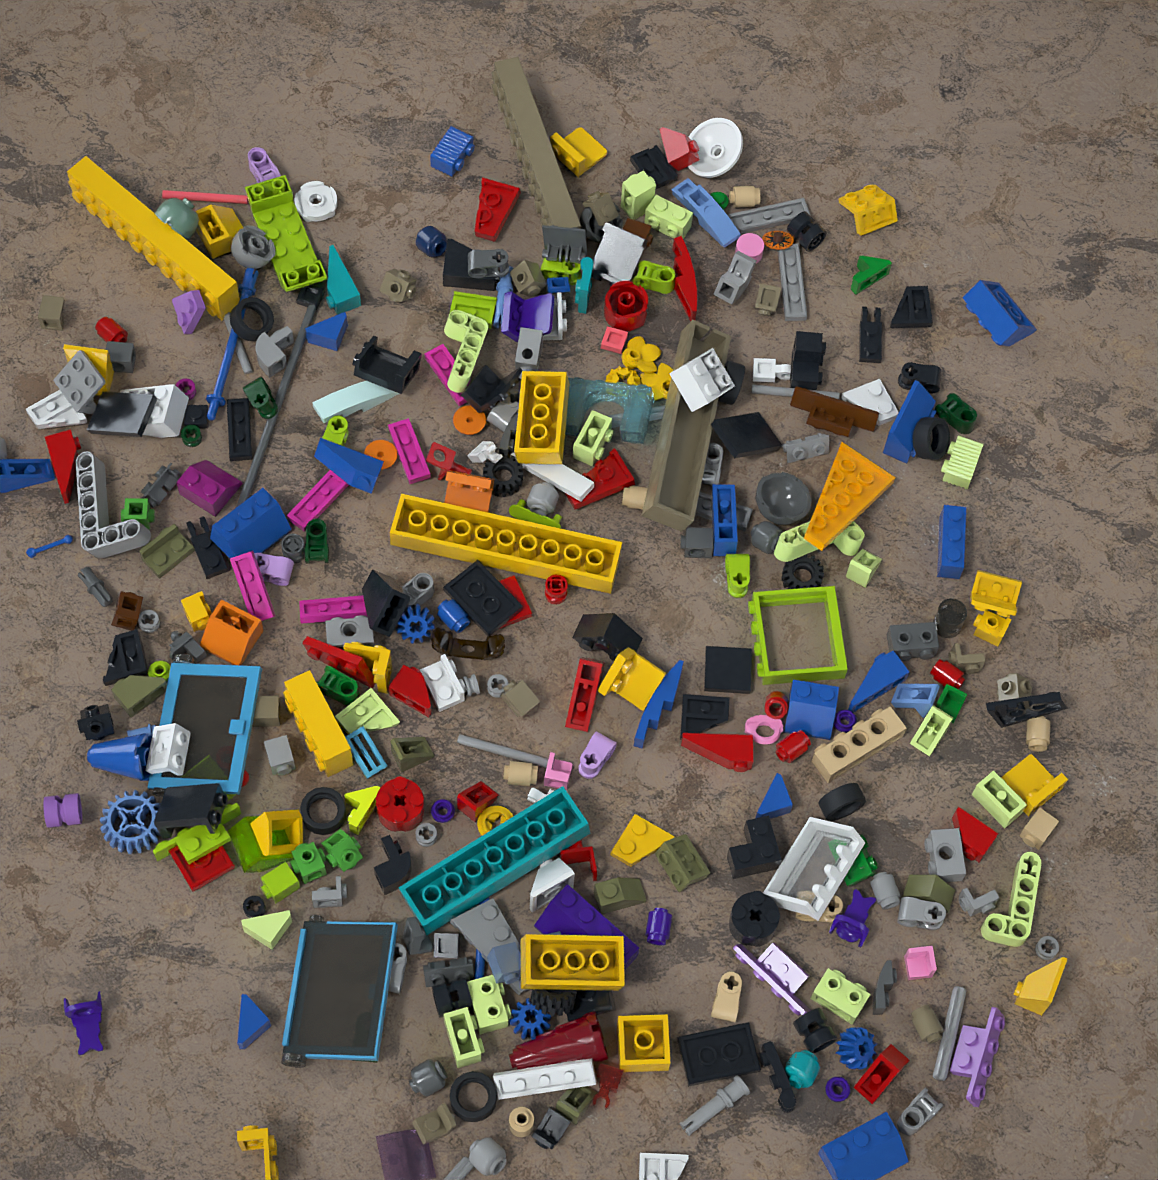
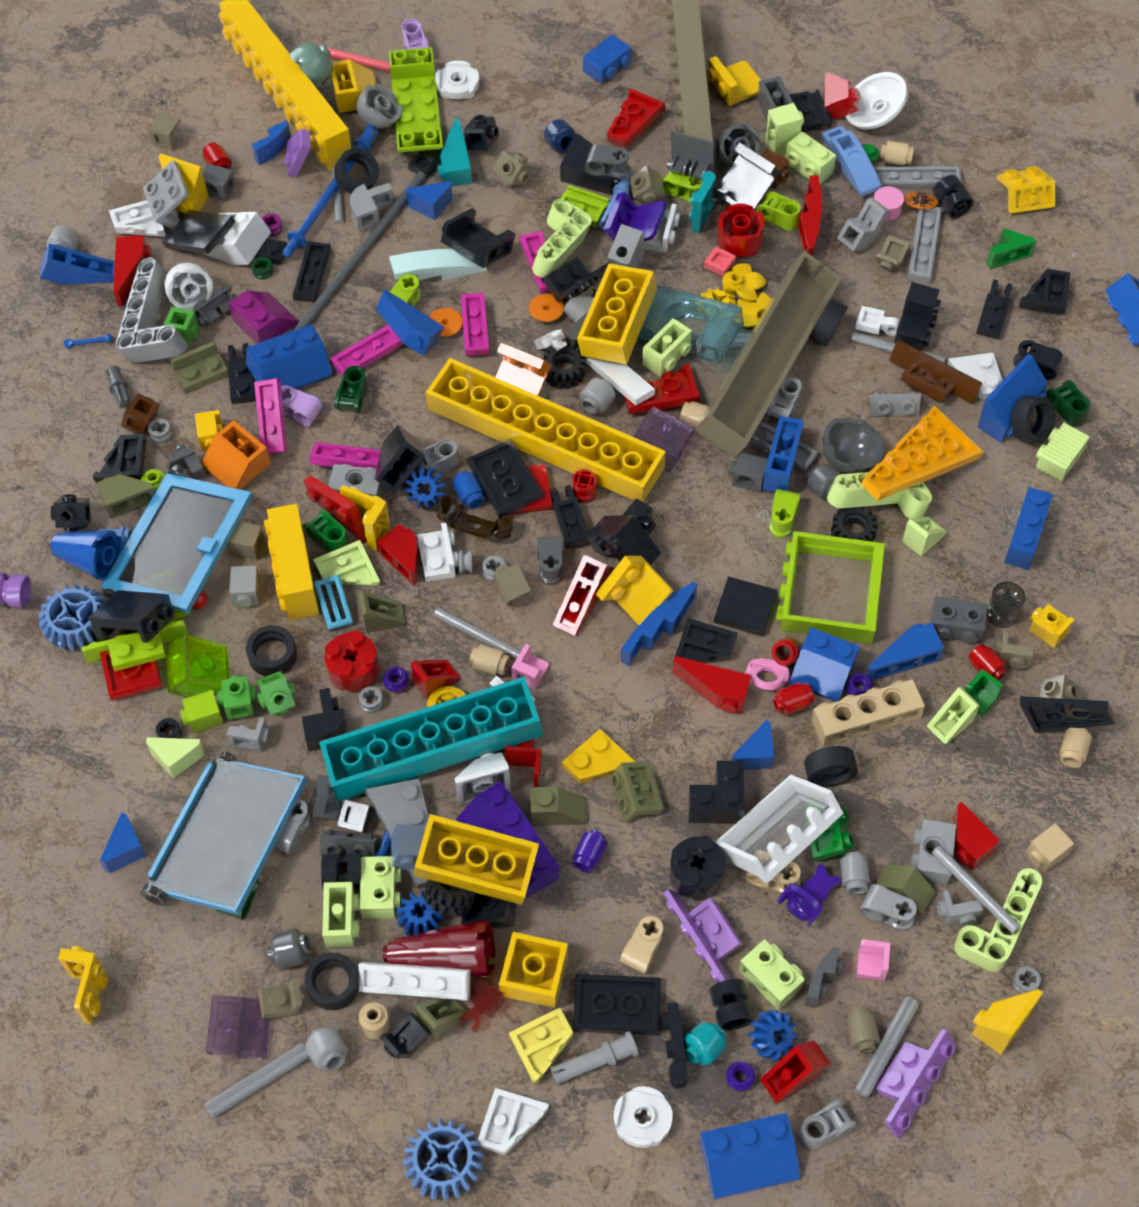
camera: 20 degrees right, 5 degrees down
(129, 471) = (188, 285): none -> white cylinder
(155, 311) = (273, 144): none -> blue slope
(168, 749) = (132, 553): white bracket -> none
(261, 398) = (342, 242): dark green piece -> none
(286, 820) = (217, 647): yellow tile -> none
(292, 543) = (325, 390): dark grey wheel -> none
(357, 254) = (481, 132): none -> black brick
(365, 803) = (313, 659): neon yellow slope -> none
(446, 465) = (508, 339): red bracket -> none
(521, 513) = (572, 403): lime piece -> none
(545, 663) = (550, 559): none -> dark grey piece
(551, 622) = (569, 518): none -> black hinge
(558, 284) = (676, 197): blue slope -> none
(597, 753) = (576, 659): lavender piece -> none
(602, 207) = (741, 130): dark tan bracket -> none
(612, 523) = (665, 433): none -> clear purple slope
(615, 605) = (643, 514): none -> black brick
(619, 164) = (772, 94): none -> dark grey brick
(665, 1103) = (541, 1042): none -> light yellow wing
(702, 380) = (795, 307): white slope -> none
(746, 435) = (831, 376): black tile -> none
(778, 1134) = (652, 1131): none -> white plate
(915, 696) = (944, 676): medium blue slope -> none
(989, 881) = (976, 889): none -> light grey piece
(995, 593) = (1064, 589): yellow bracket -> none
(999, 799) = (1011, 805): yellowish green brick -> none
(1033, 783) = (1053, 799): yellow bracket -> none

